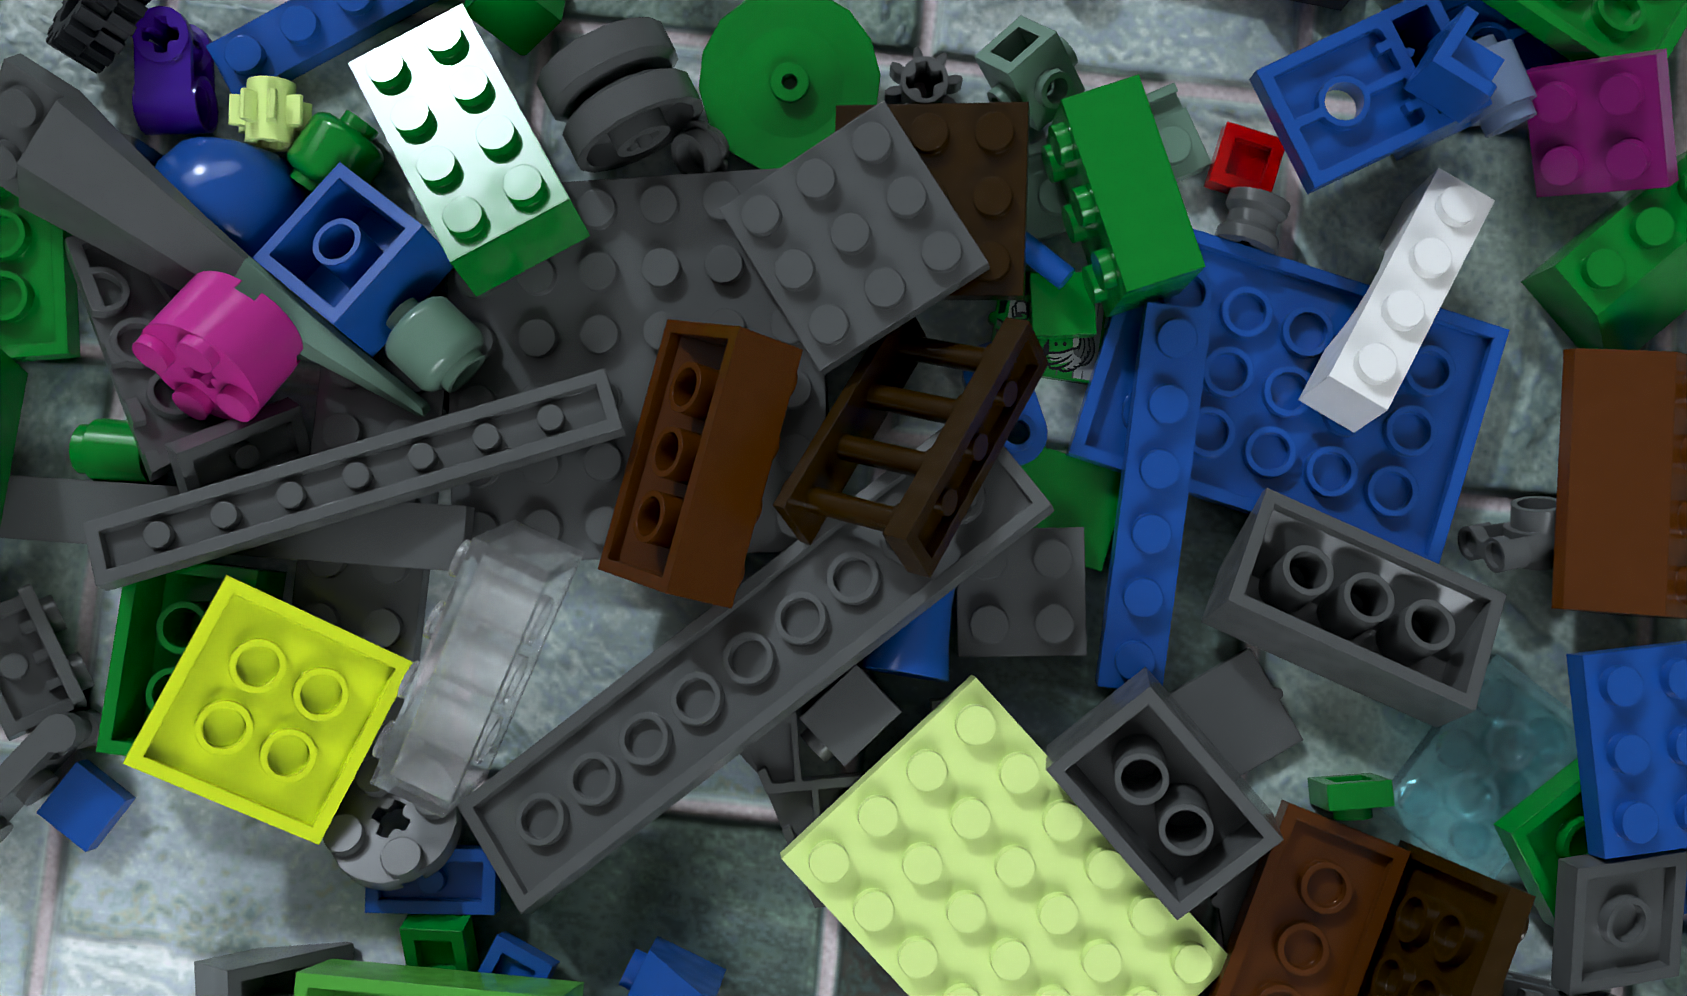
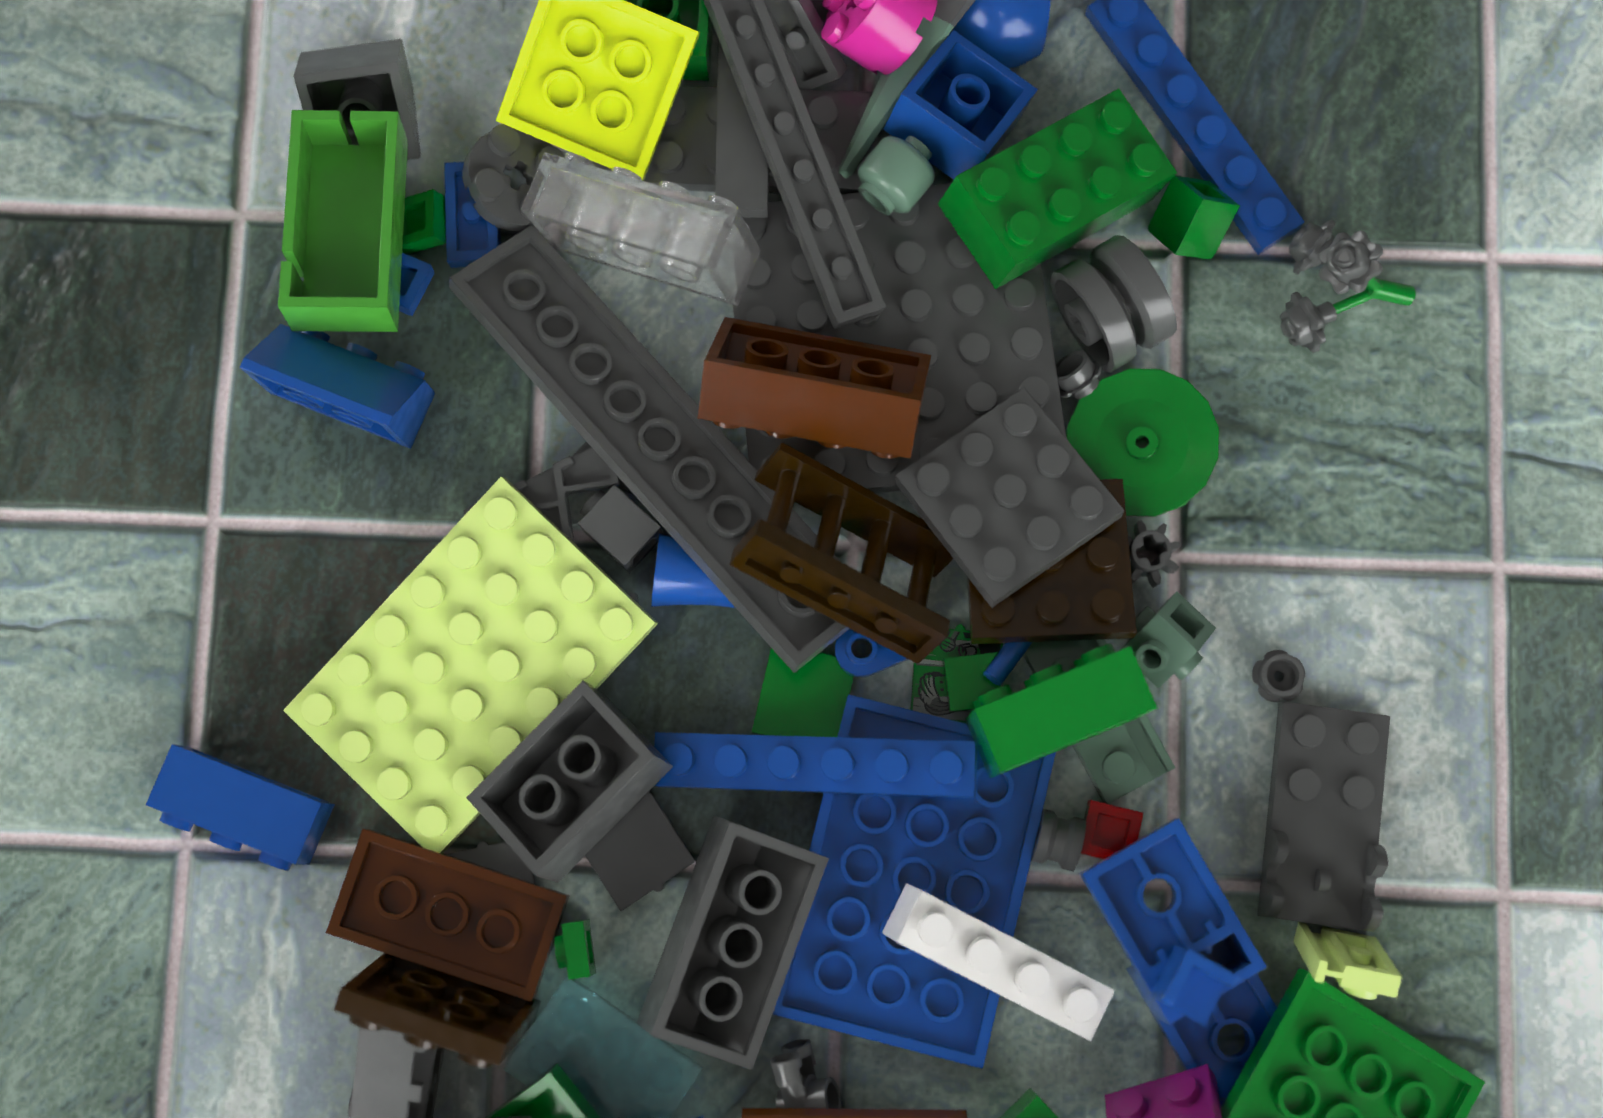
camera: 85 degrees right, 5 degrees down
(269, 112) = (1076, 34): yellowish green gear -> none
(334, 140) = (1056, 85): green head -> none
(1027, 599) = (725, 669): dark grey plate -> none
(1514, 91) = (1189, 1044): sand blue brick -> none

